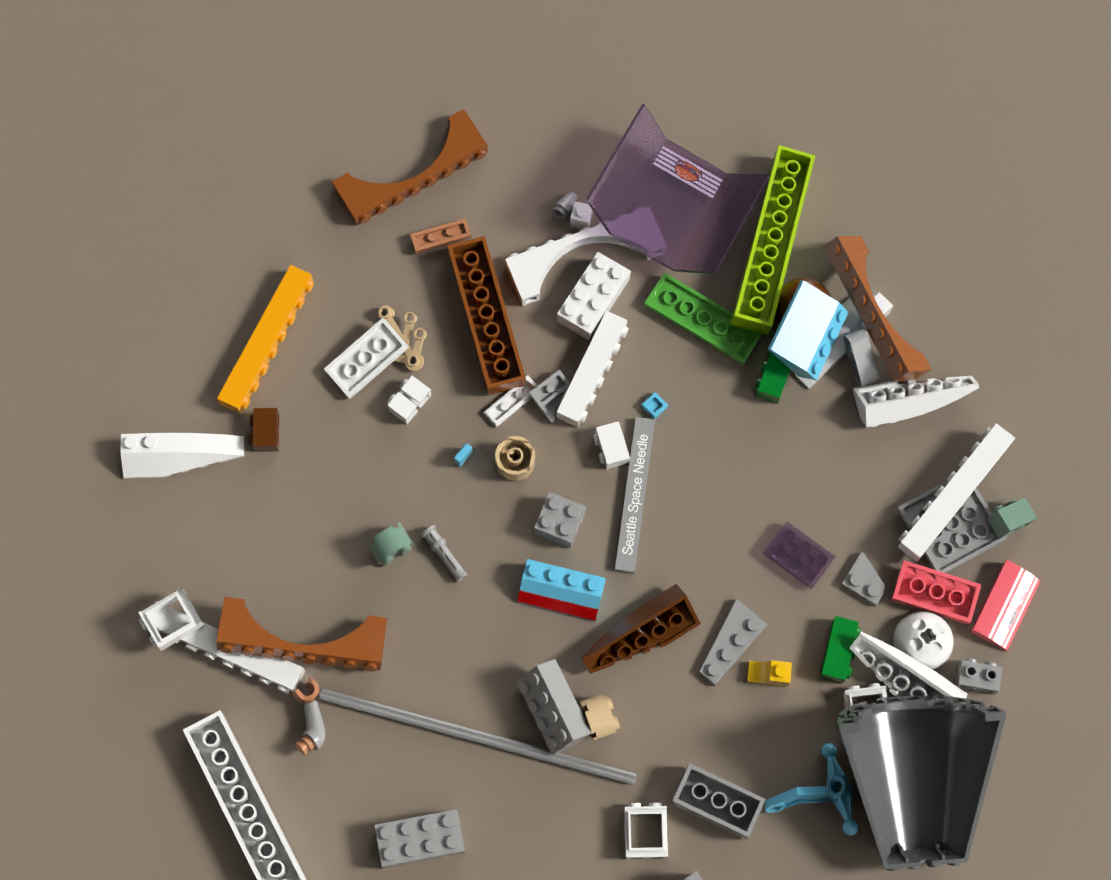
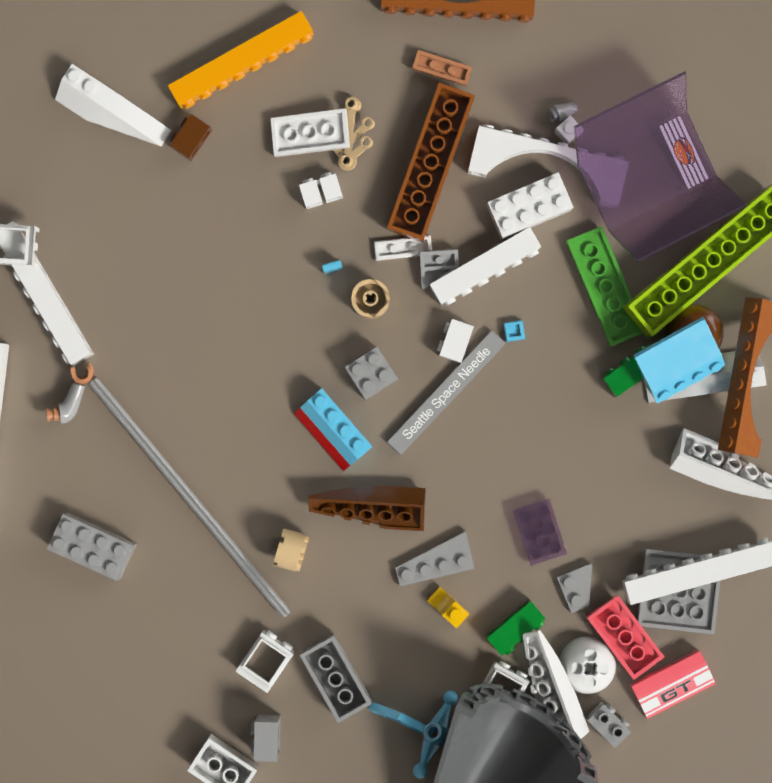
camera: 45 degrees right, 15 degrees up
(244, 635) = (59, 295): dark orange arch -> none
(389, 544) = (223, 301): sand green brick -> none
(440, 543) = (262, 326): light grey pin -> none
(553, 707) = (260, 519): light grey brick -> none
(861, 357) = (707, 409): light grey beam -> none
(1012, 517) = (729, 622): sand green brick -> none

